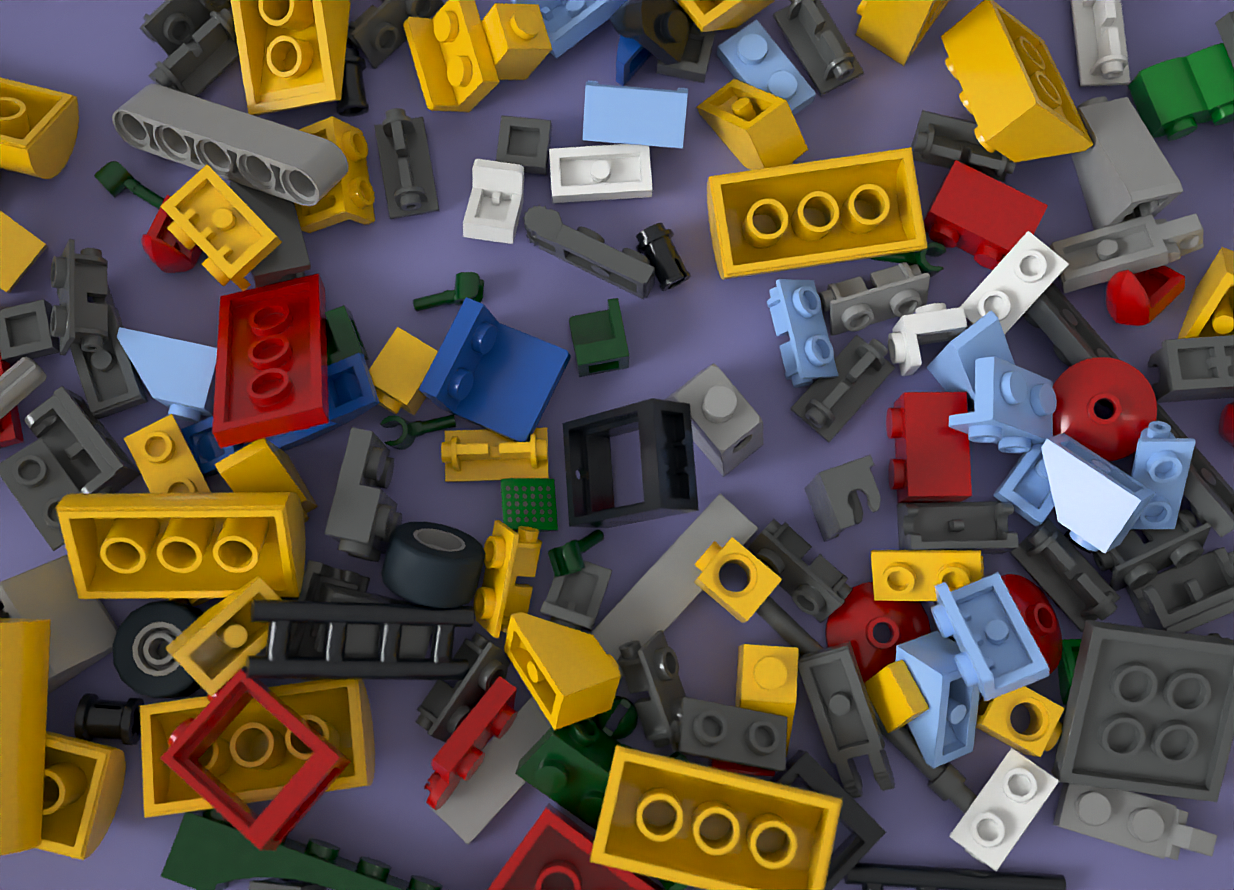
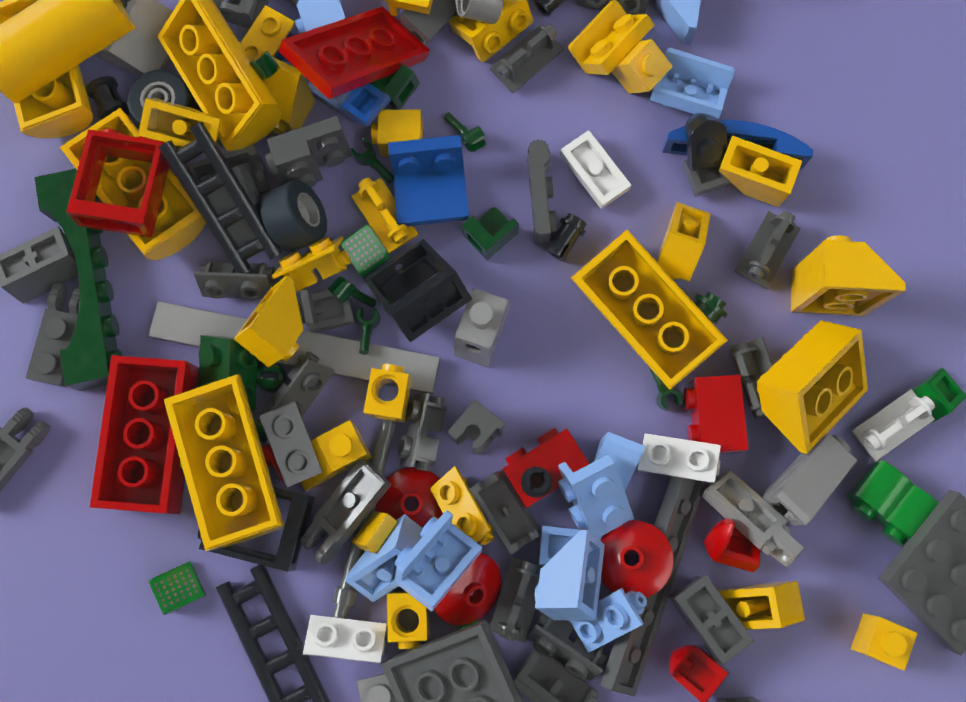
camera: 65 degrees right, 0 degrees up
(225, 477) = (265, 66): none -> dark green hand
(462, 751) = (195, 297): red hinge -> none
(494, 201) = (535, 120): white bracket -> none
(525, 143) = (583, 114): dark grey plate -> none
(632, 561) = (366, 329): none -> dark green hand
(634, 115) = (641, 166): light blue hinge -> none
(759, 62) = (727, 229): light blue plate -> none
(798, 312) = (572, 348): light blue hinge -> none
(833, 401) = (552, 394): dark grey hinge -> none
(850, 143) = (711, 306): none -> dark green plate
(895, 294) = (608, 370): light grey hinge -> none
(929, 325) = (625, 422): white bracket -> none
(947, 471) = (536, 492): none -> black pin

